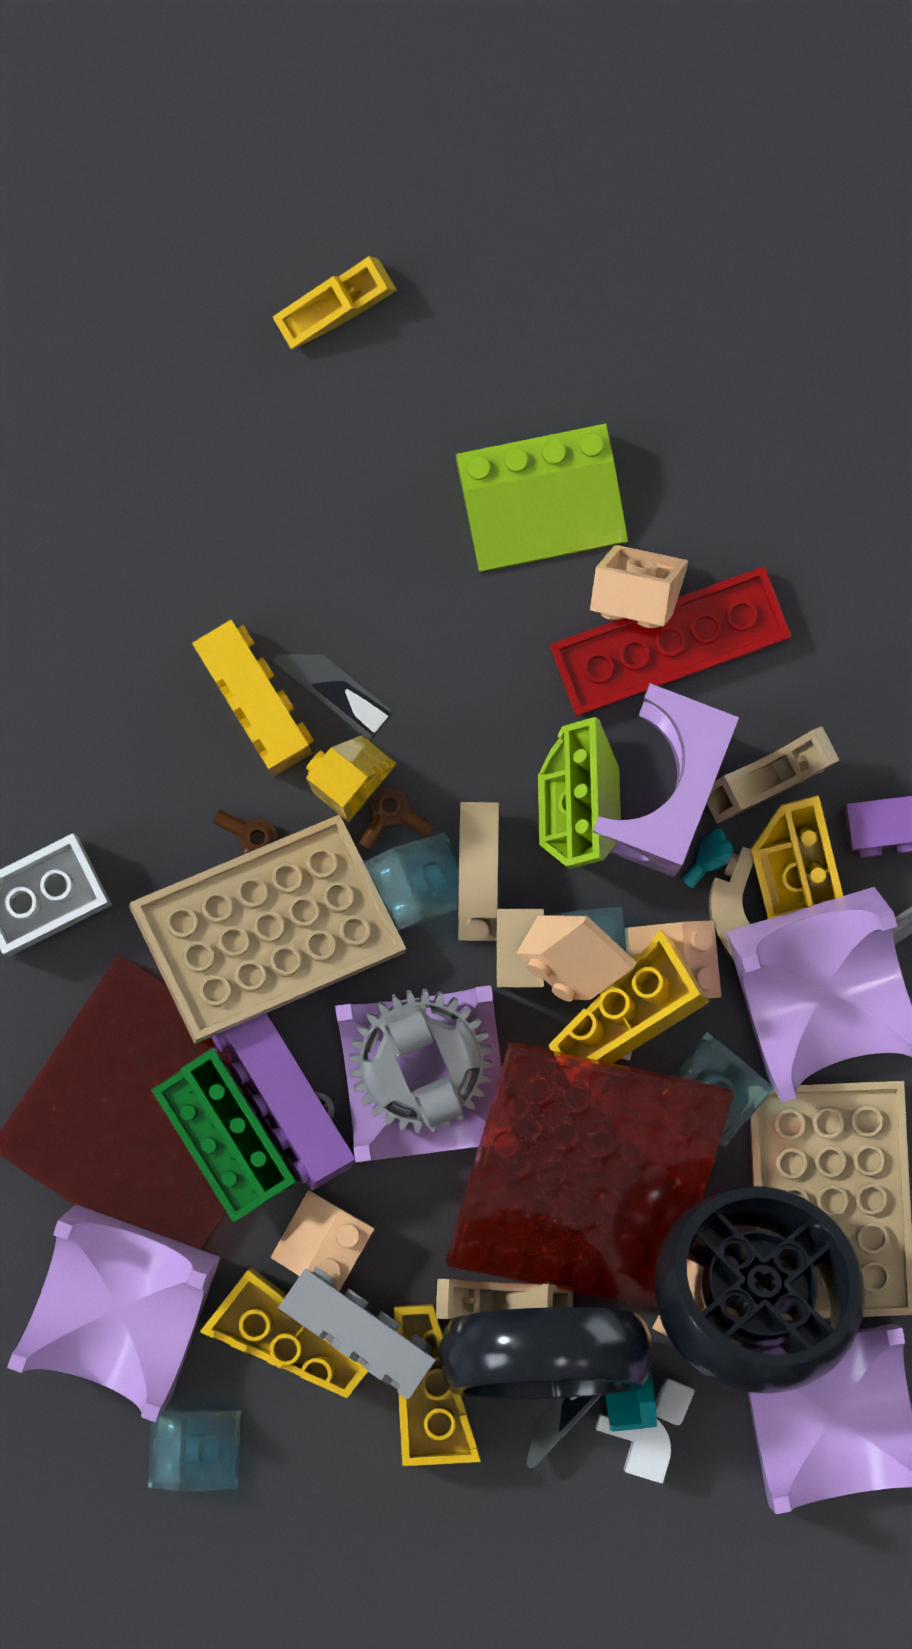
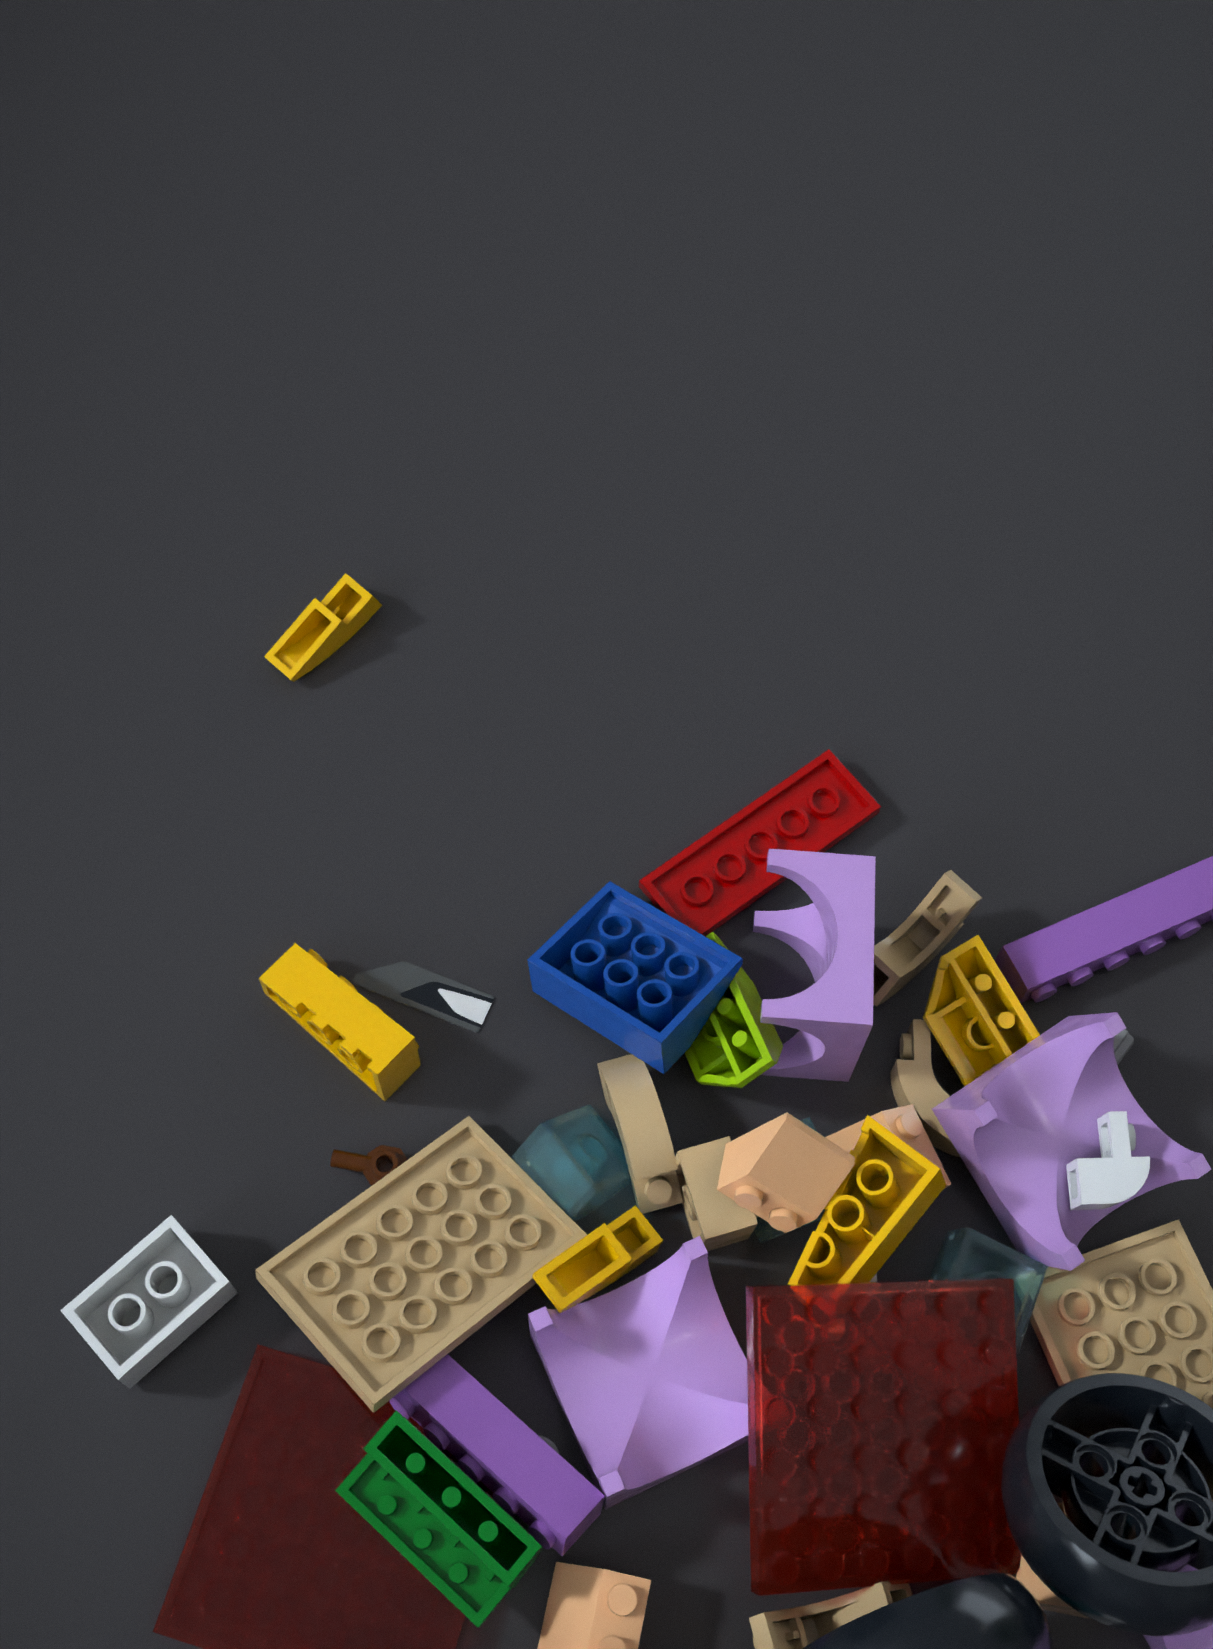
camera: 25 degrees left, 20 degrees down
(348, 774) = (463, 1065): yellow wedge -> none
(389, 809) = (523, 1094): reddish brown piece -> none
(408, 1029) = (619, 1315): light grey piece -> none
(409, 971) = (598, 1260): none -> yellow slope
(514, 735) = (634, 975): none -> blue slope
(542, 497) = (584, 746): lime slope -> none
(637, 586) = (711, 799): light nougat slope -> none
(711, 855) = (880, 1045): teal rock -> none
(851, 1038) = (1114, 1176): none -> white brick

